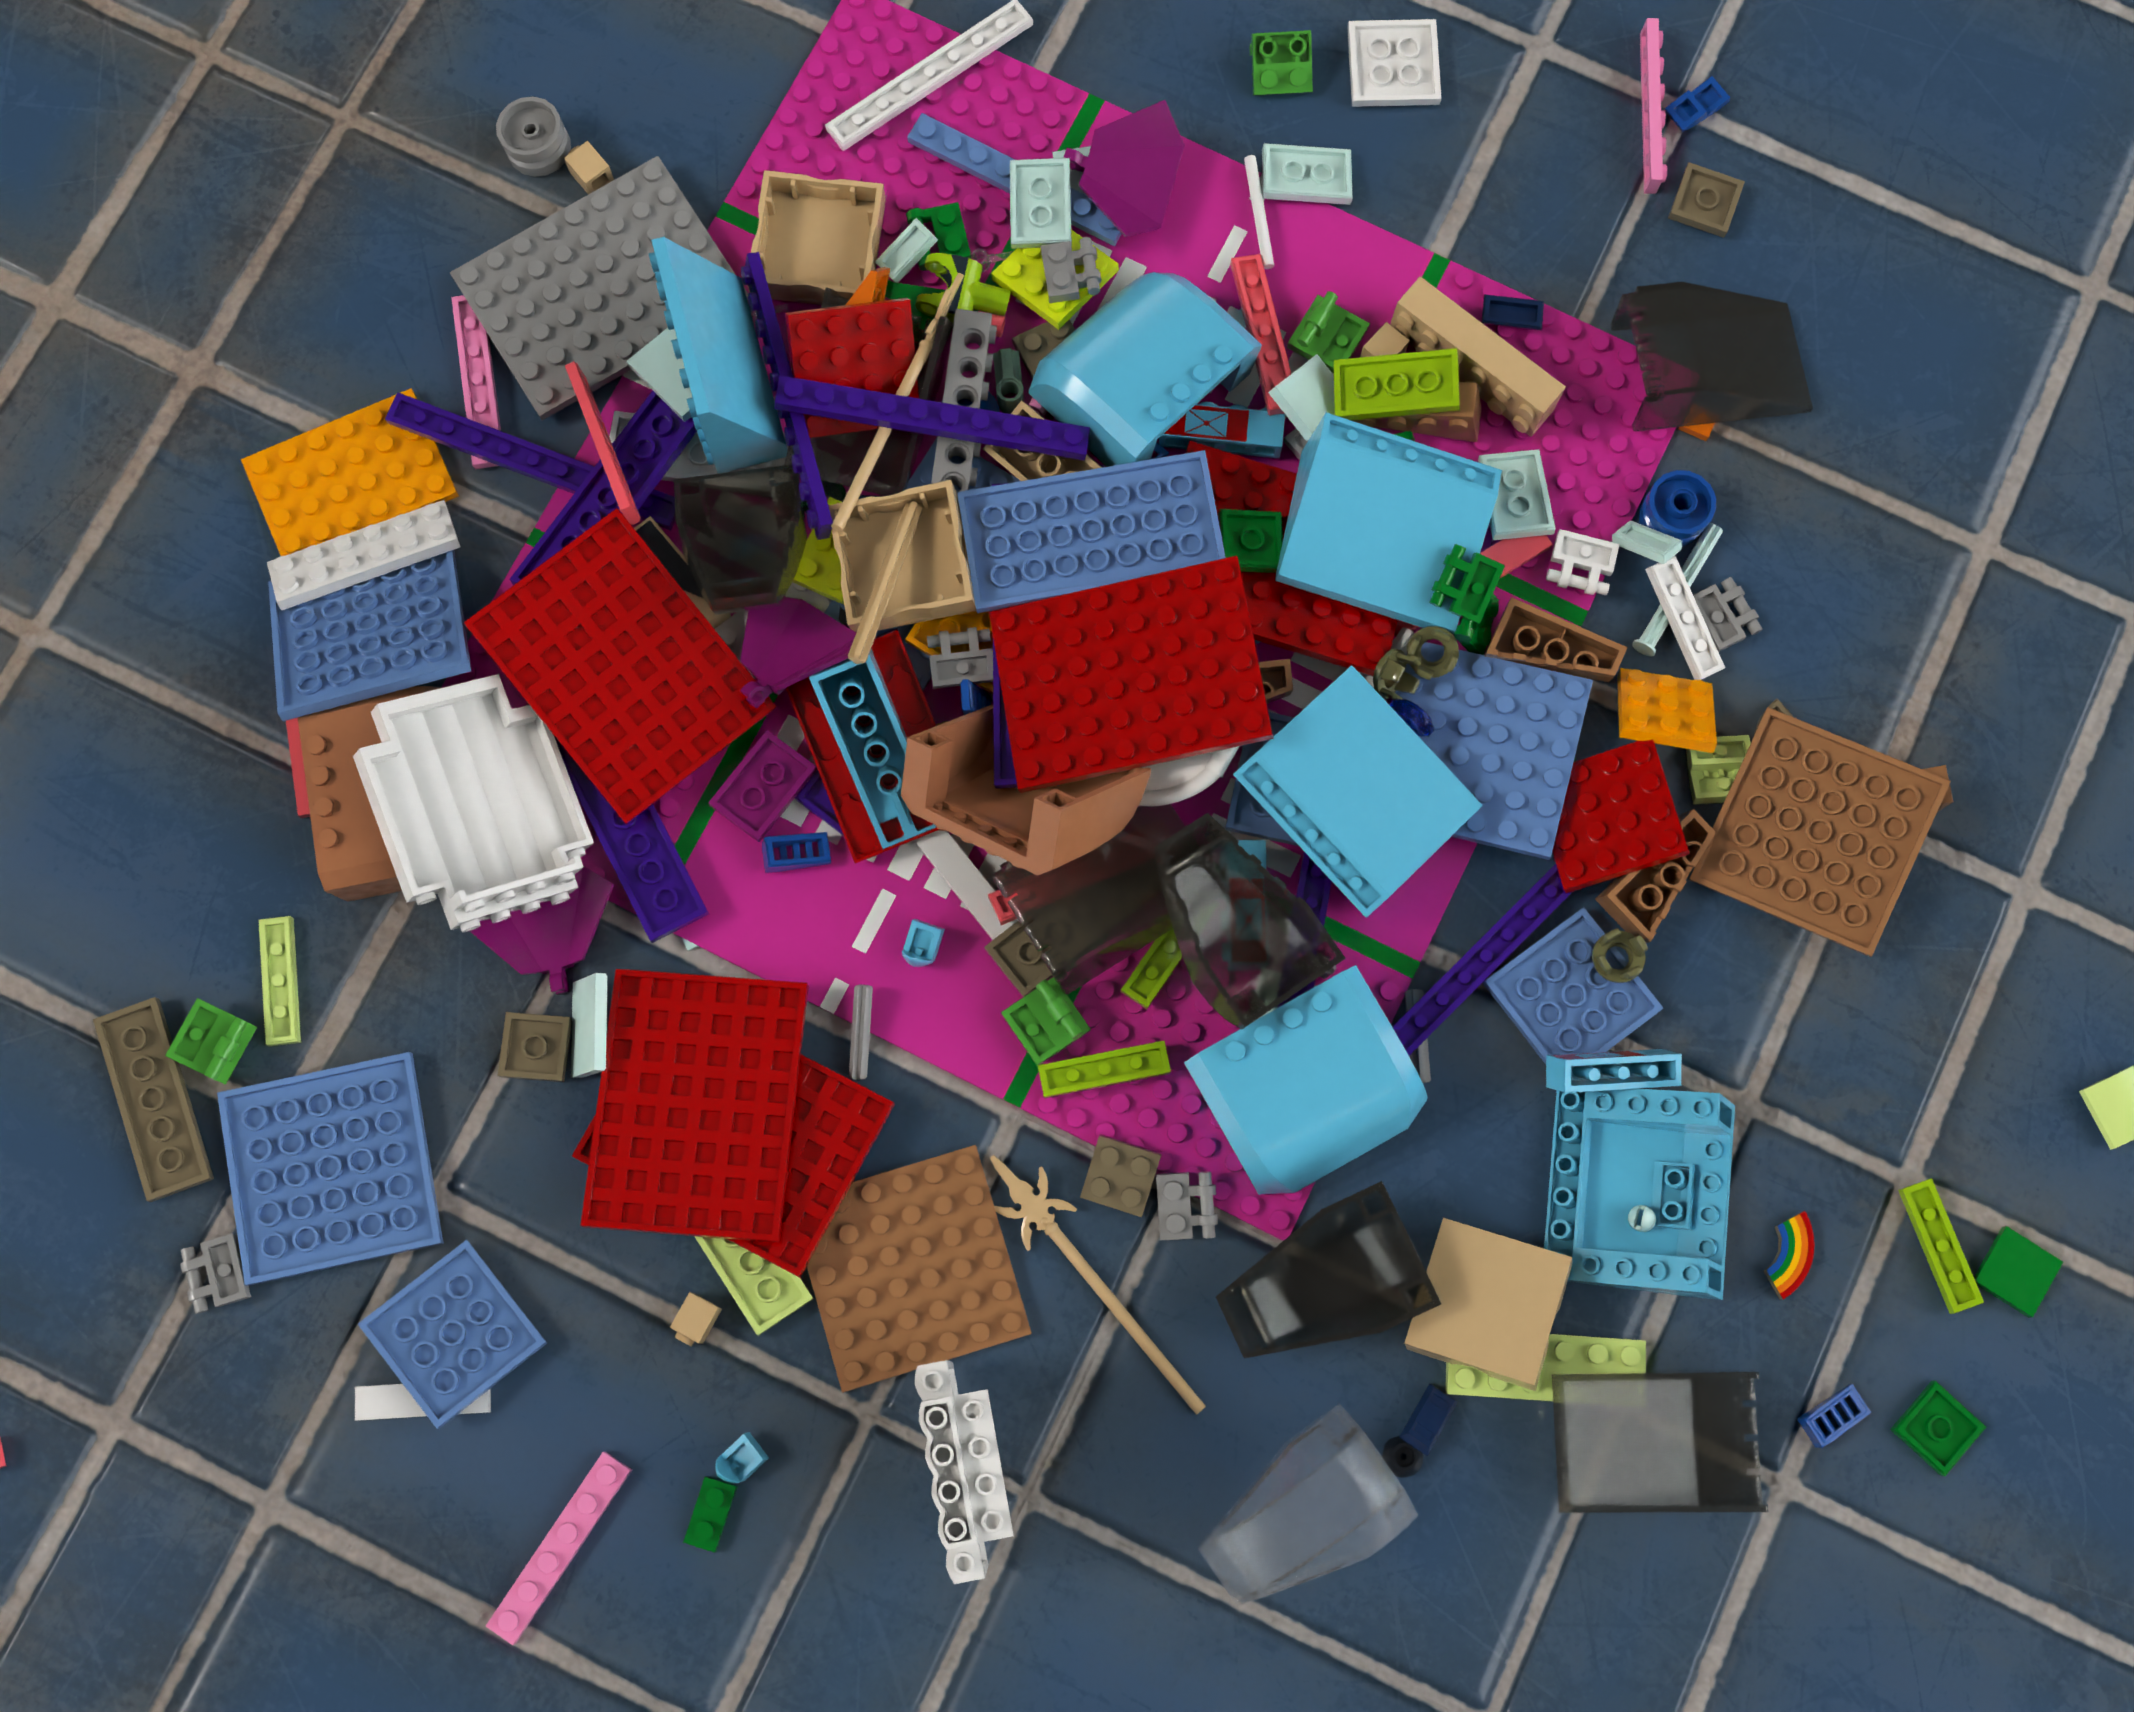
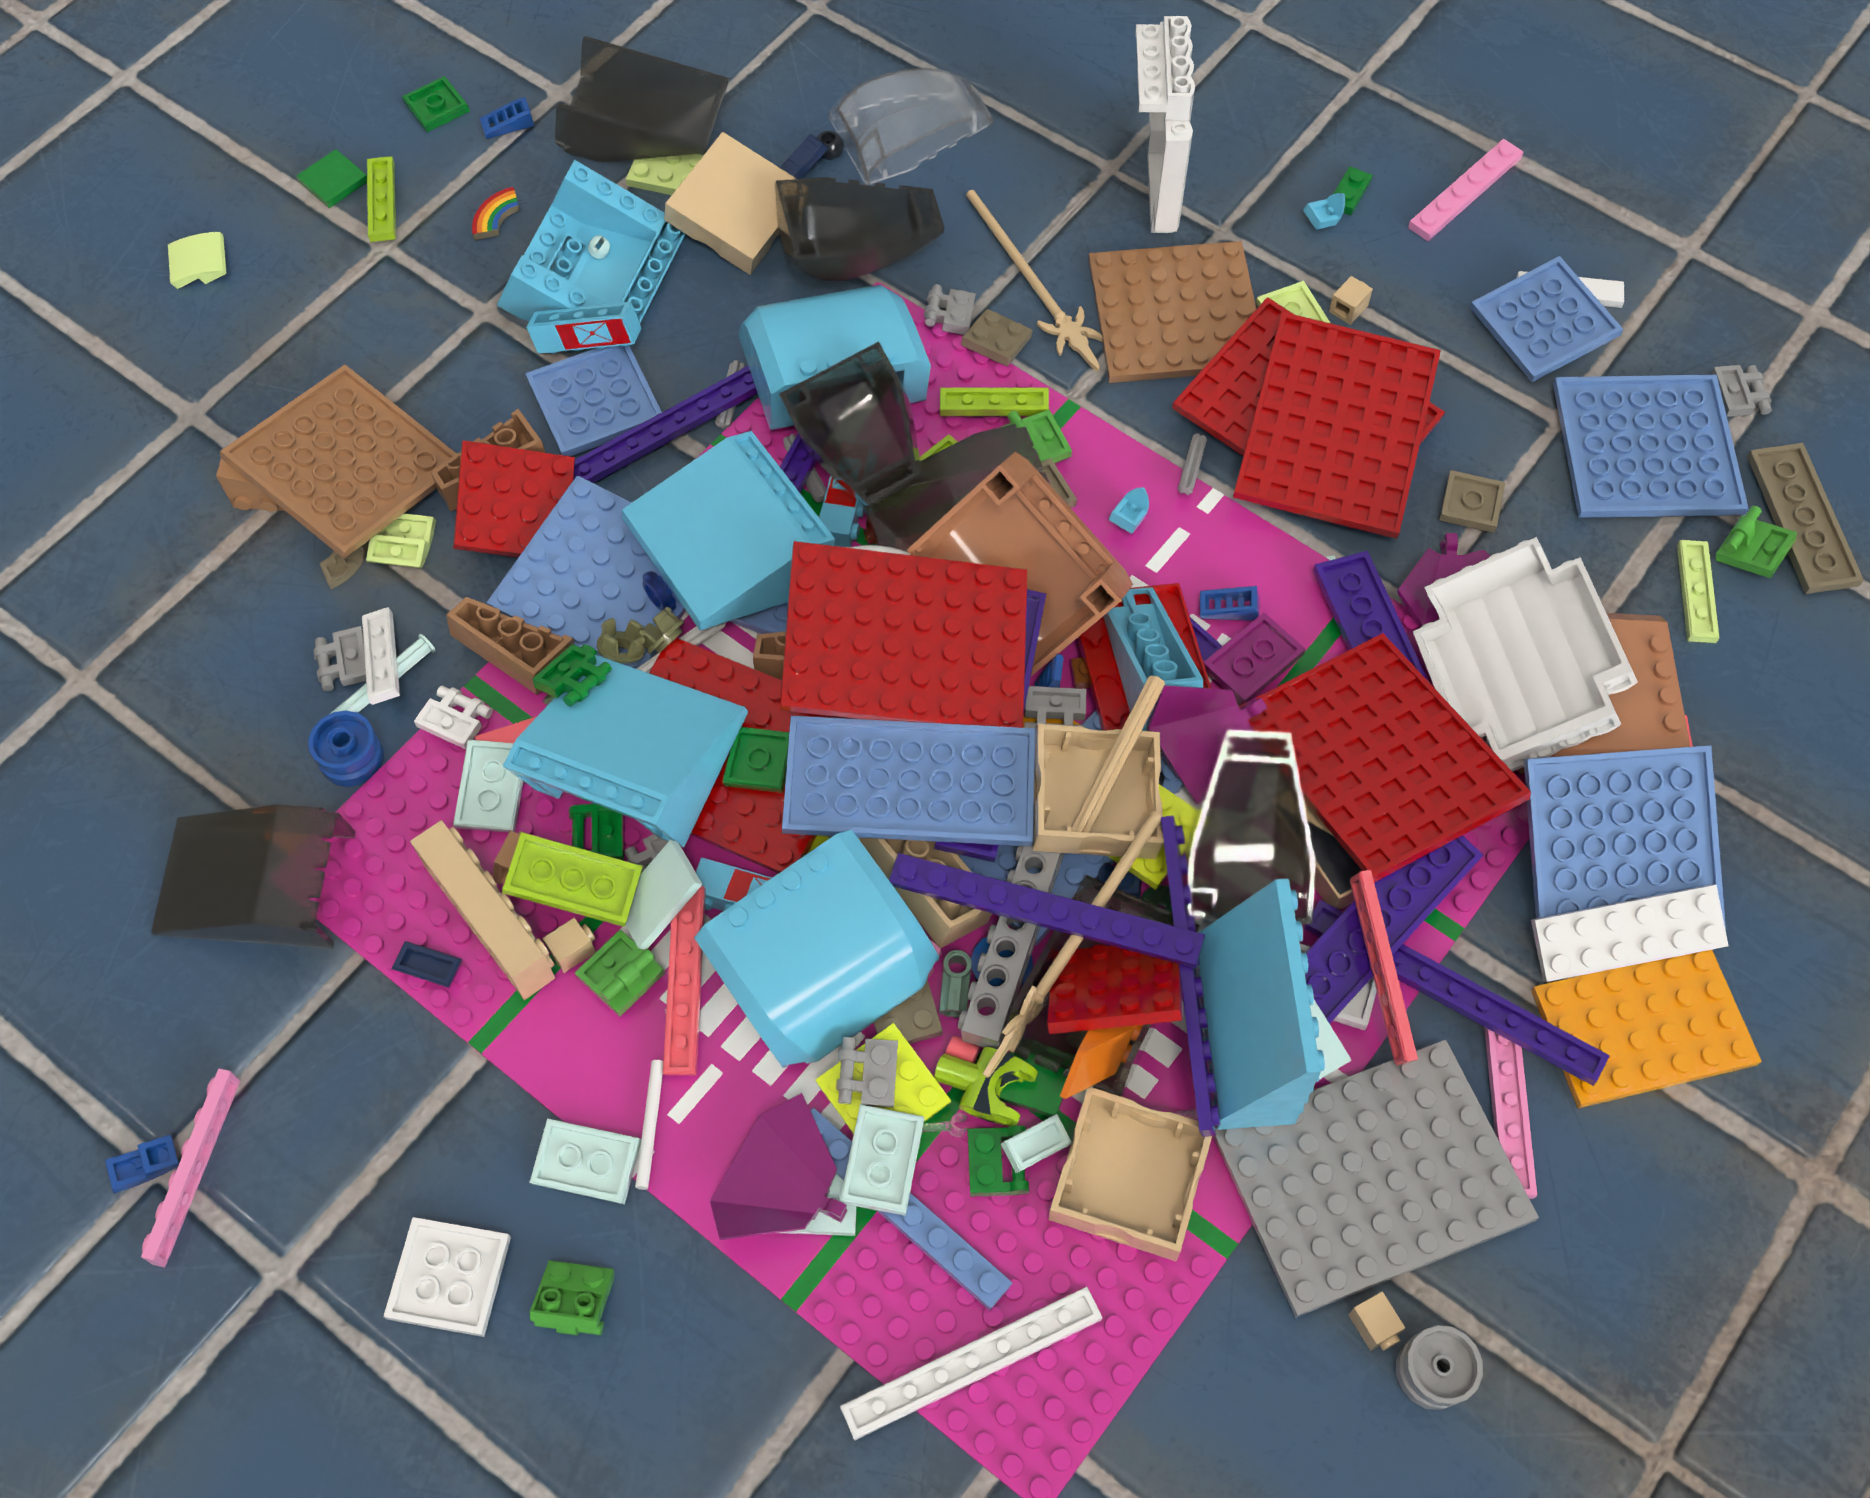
camera: 165 degrees left, 15 degrees down
(589, 1025) = (1425, 498): light aqua tile -> none
(1633, 945) = (544, 396): olive piece -> none
(1647, 542) = (387, 720): light aqua tile -> none
(1666, 710) = (429, 576): light orange plate -> none
(1706, 199) = (181, 1052): dark tan plate -> none

